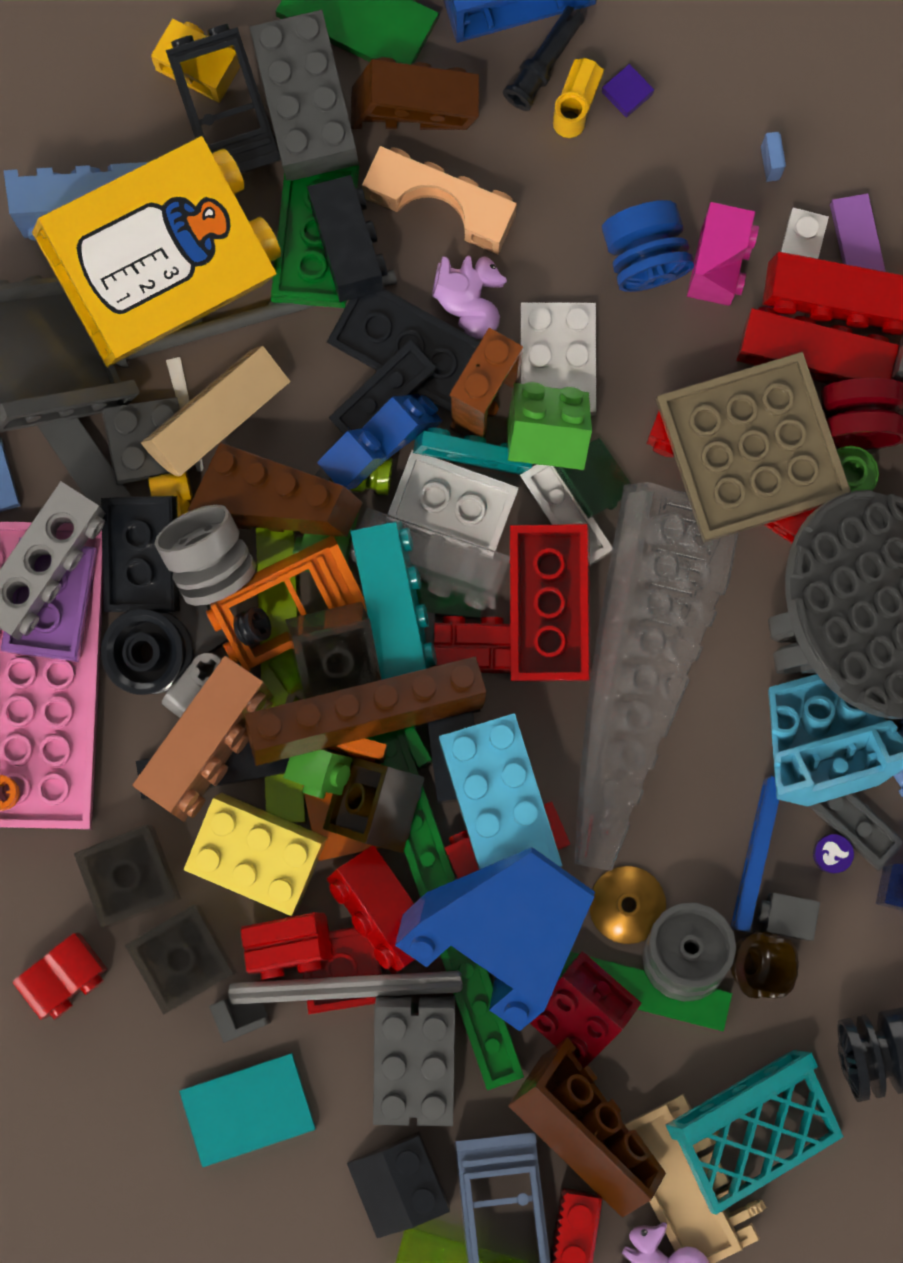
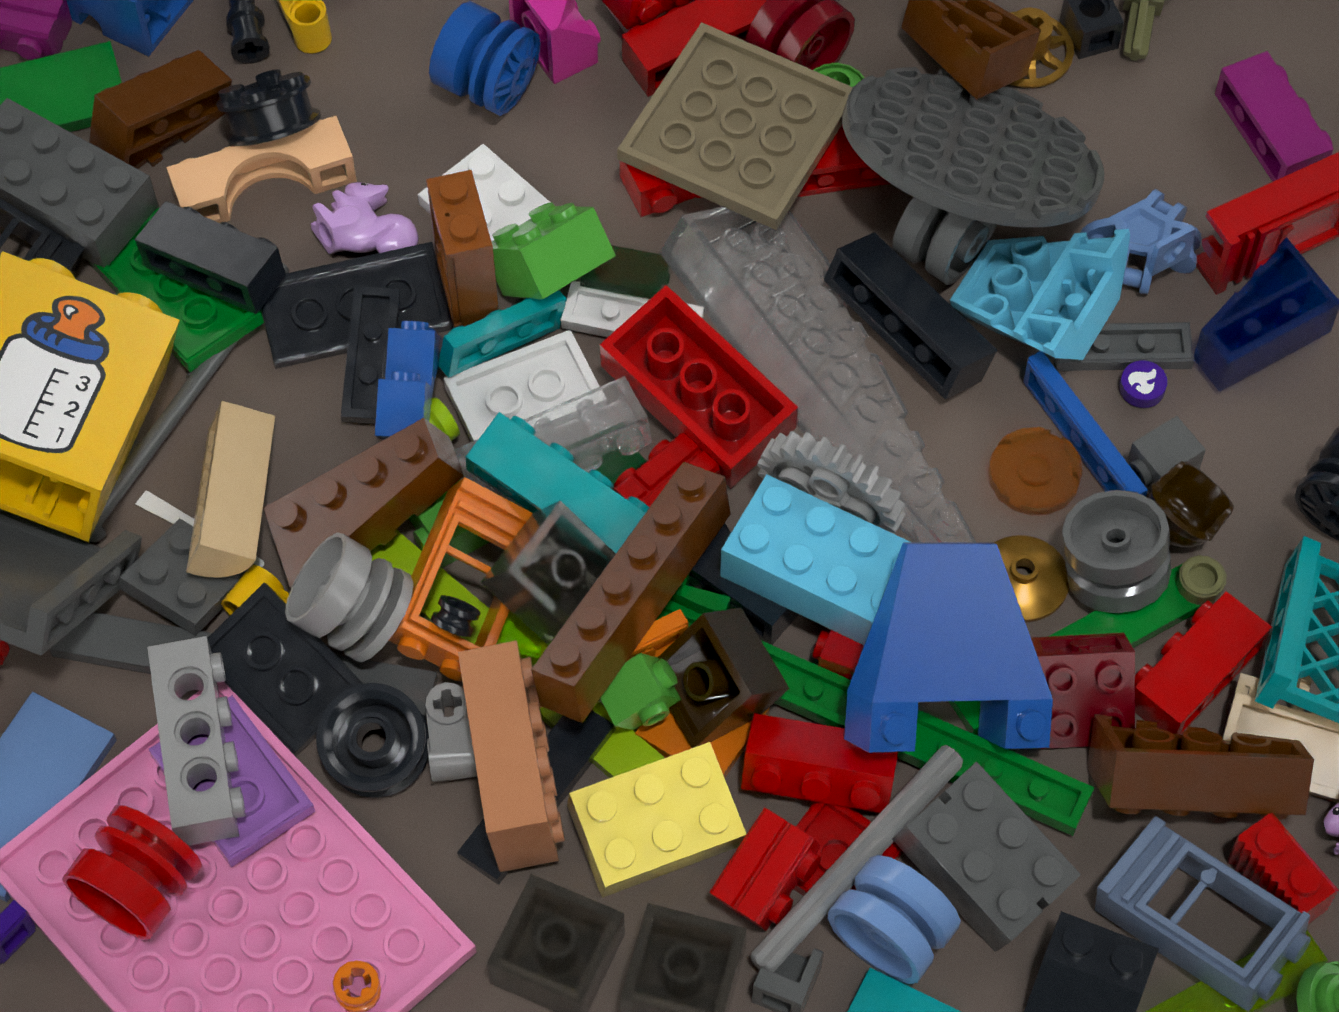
camera: 45 degrees left, 20 degrees down
(327, 1045) = (894, 919): none -> medium blue wheel
(479, 160) = (268, 108): none -> black wheel
(551, 754) = (833, 477): none -> light grey gear
(666, 1063) = (1199, 664): none -> red brick
(706, 845) = (1035, 471): none -> clear orange tile
(725, 1015) = (1201, 579): none -> olive tile
(733, 674) = (910, 315): none -> black brick

